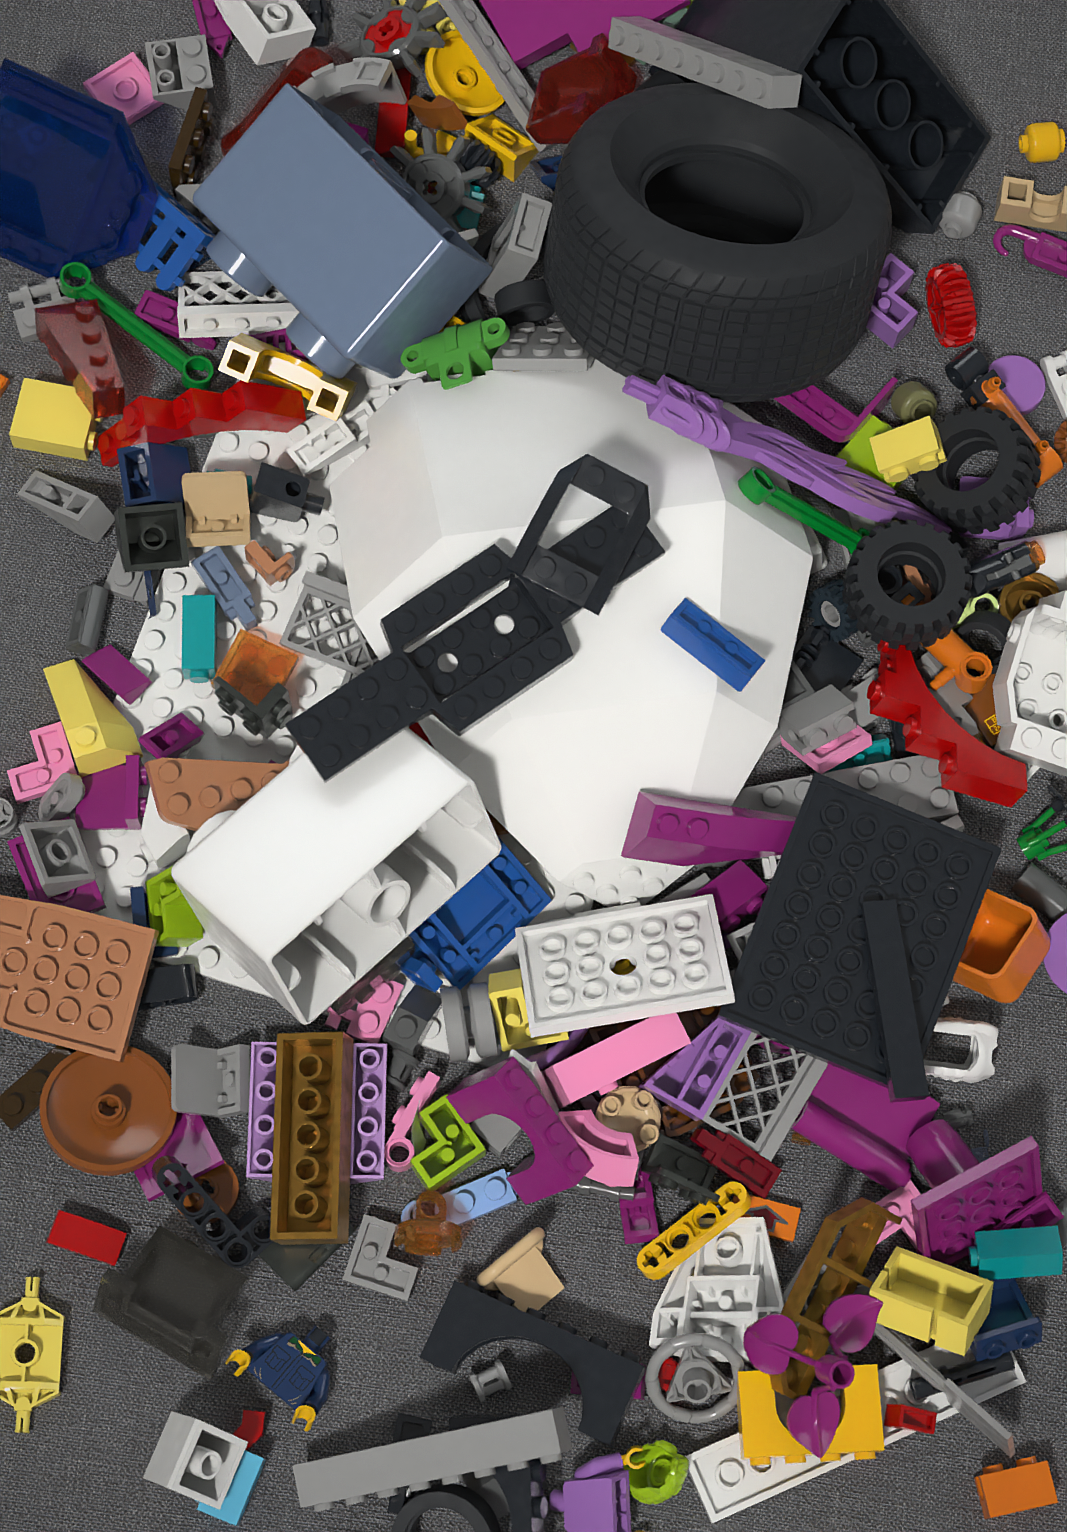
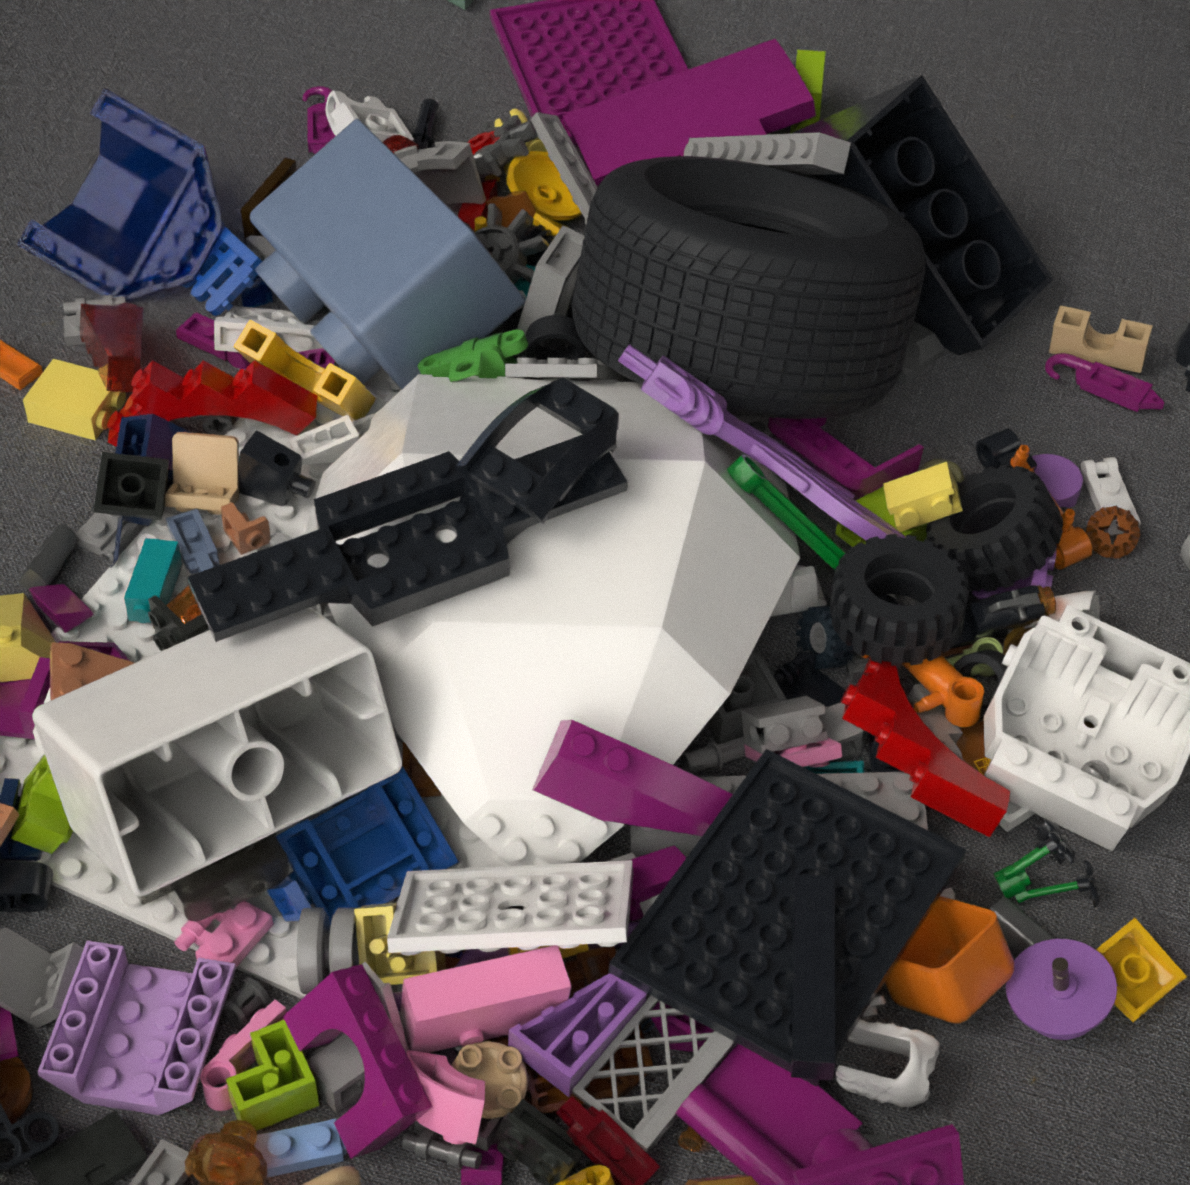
camera: 15 degrees right, 25 degrees down
(68, 505) = (63, 466): light grey slope -> none
(124, 87) = (233, 173): bright pink plate -> none
(135, 326) = (133, 292): green piece -> none
(178, 68) = (270, 149): light grey slope -> none
(312, 1138) = (120, 1041): pearl gold brick -> none
(412, 1020) = (266, 952): dark grey slope -> none
(417, 1136) = (243, 1052): sticker -> none
(712, 645) = (664, 583): blue slope -> none
(890, 315) = (925, 395): medium lavender brick -> none
(951, 305) = (990, 398): red gear -> none
(961, 216) = (1013, 338): light grey head -> none
(1042, 142) = (1105, 294): yellow head -> none

